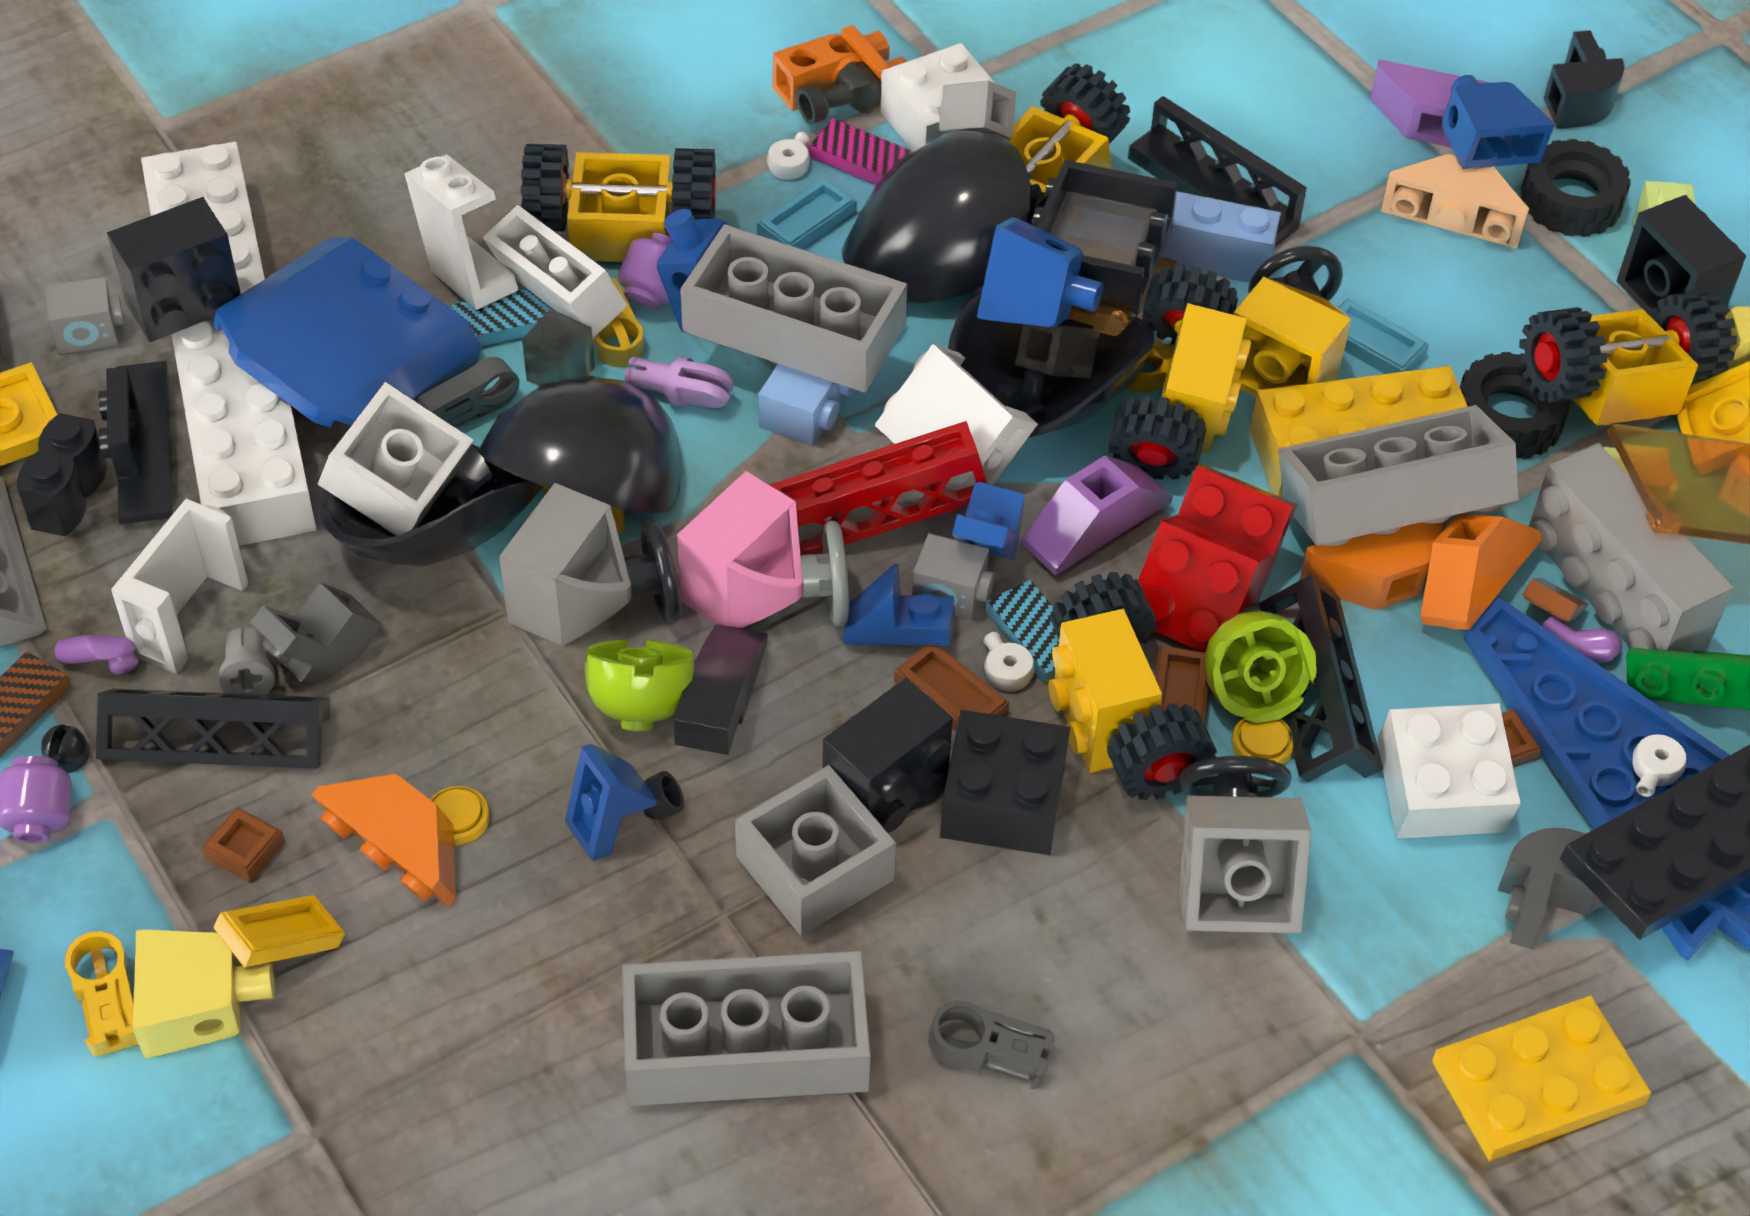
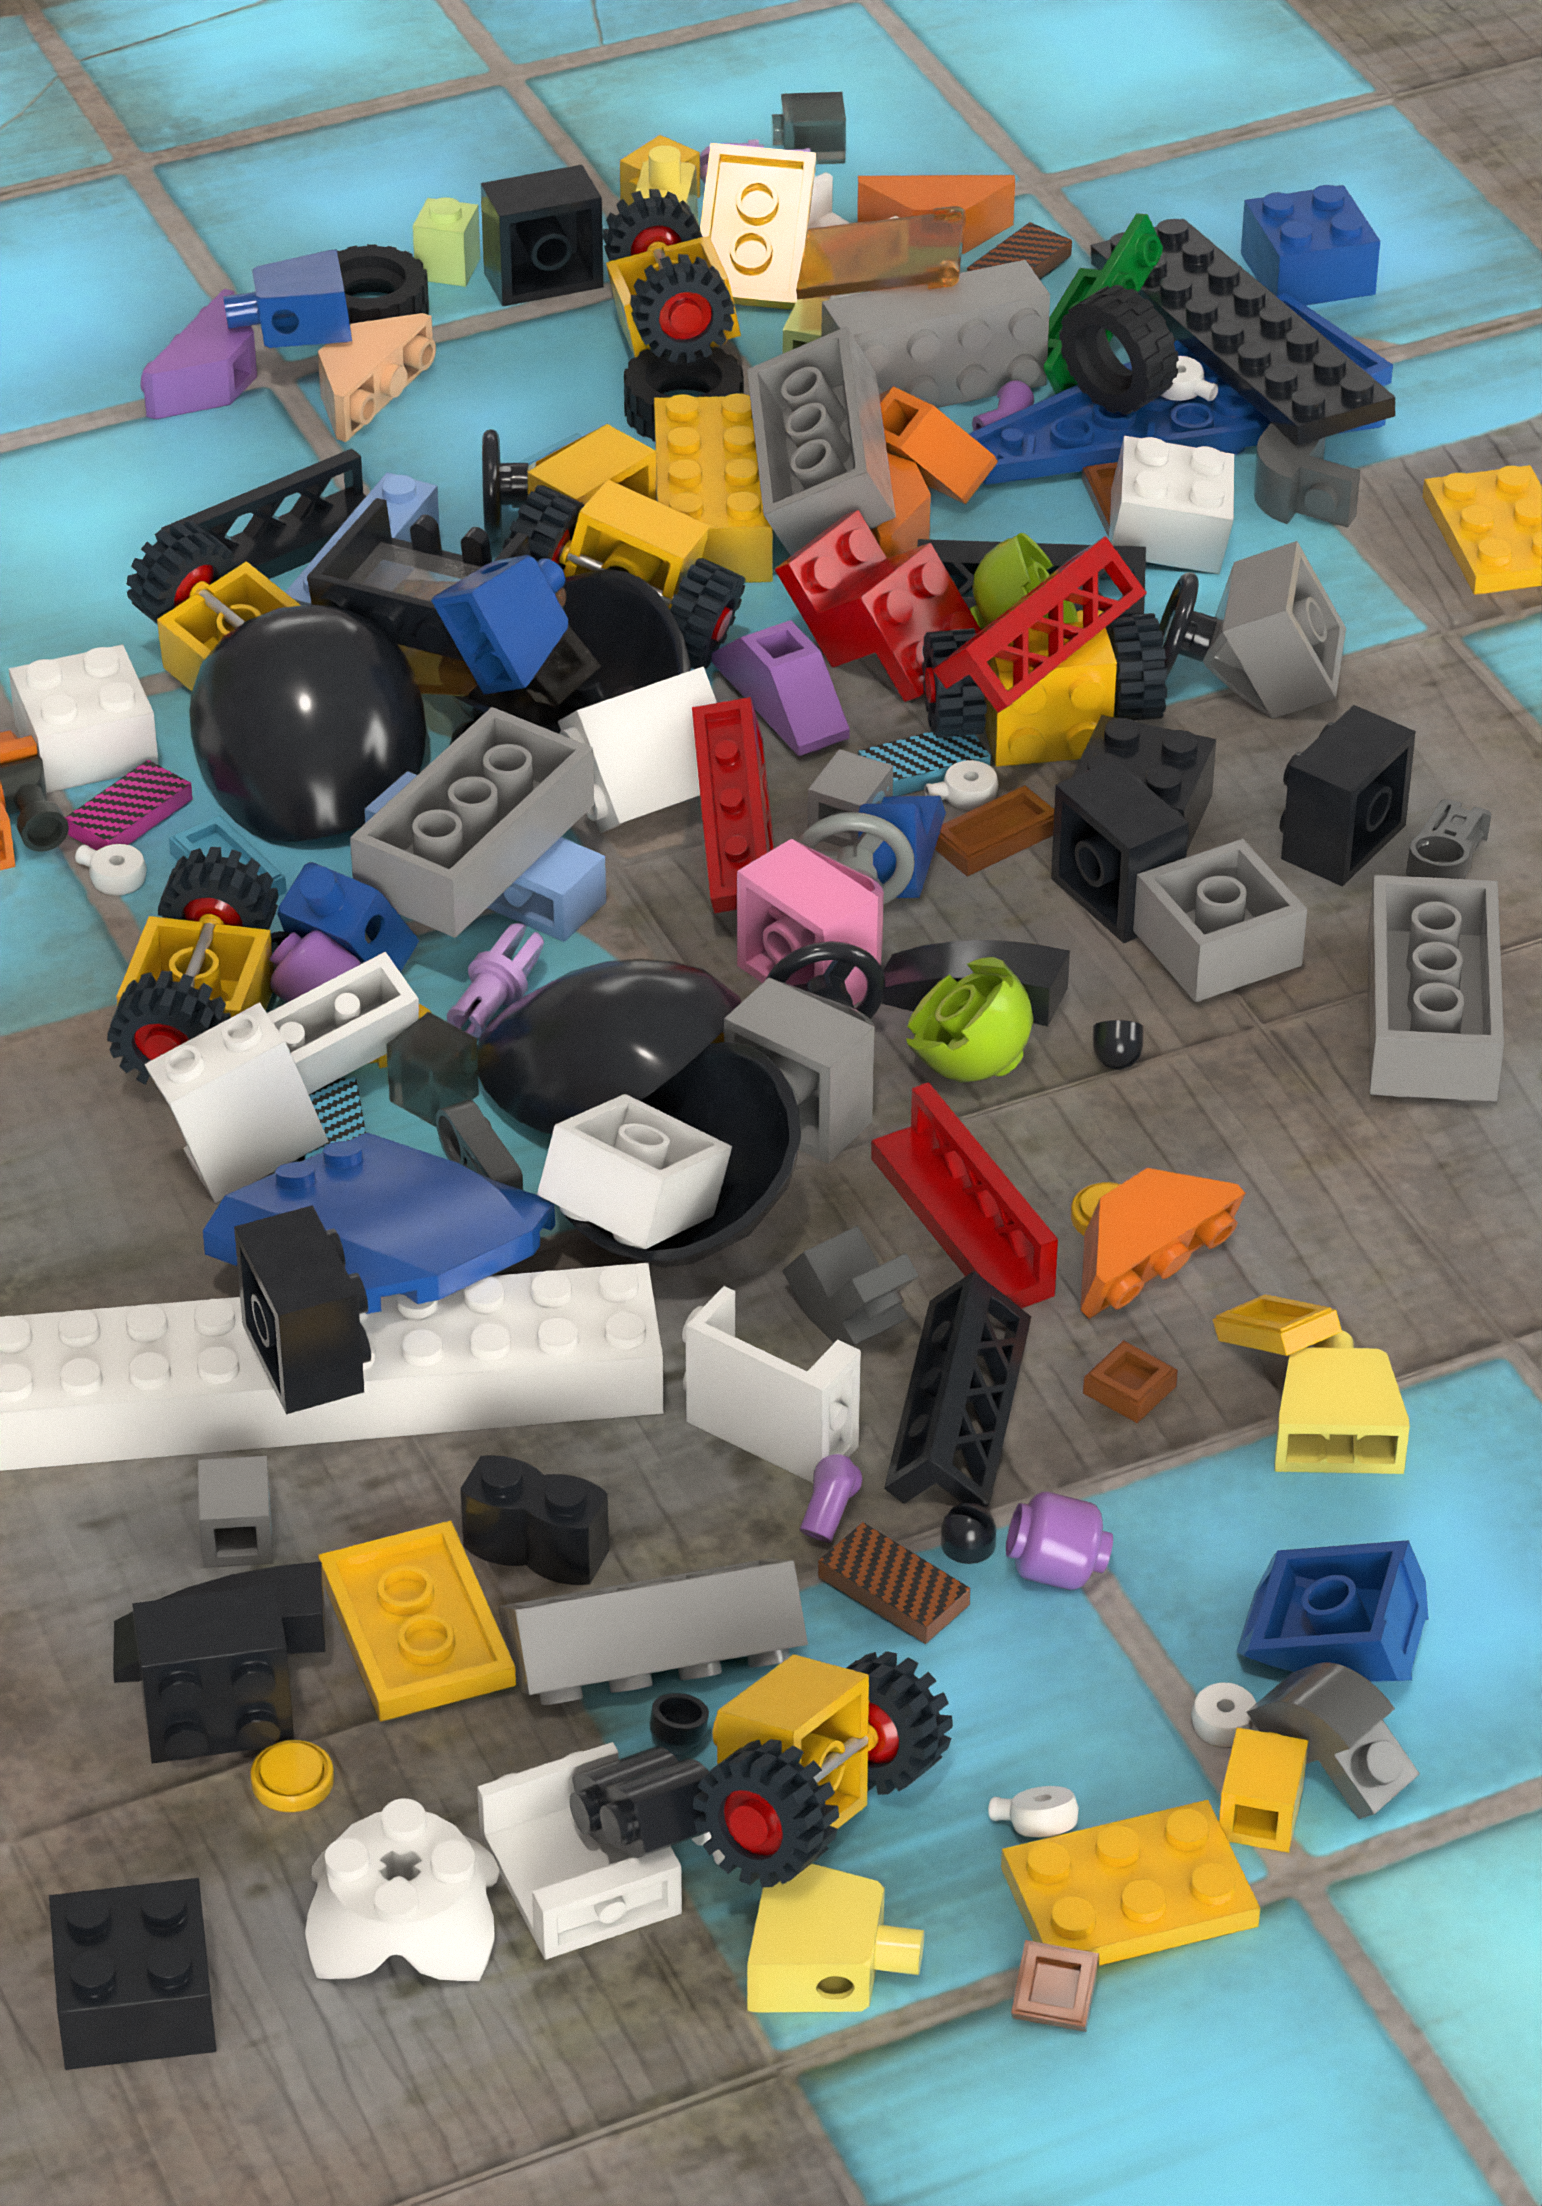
camera: 80 degrees left, 10 degrees down
(108, 998) = (1339, 1482): yellow piece -> none
(138, 439) = (443, 1448): black bracket -> none
(234, 671) = (882, 1358): light grey bush -> none
(439, 710) = (968, 1201): none -> red fence
(600, 796) = (1143, 1061): blue slope -> none
(977, 107) = (173, 650): light grey brick -> none
(992, 520) = (804, 746): blue slope -> none
(1006, 934) = (1347, 794): none -> black brick
(1122, 620) = (1029, 613): none -> red fence
(1554, 600) = (968, 405): dark orange tile -> none
(1583, 86) = (210, 249): black brick -> none
(1629, 682) = (1143, 337): none -> black tyre

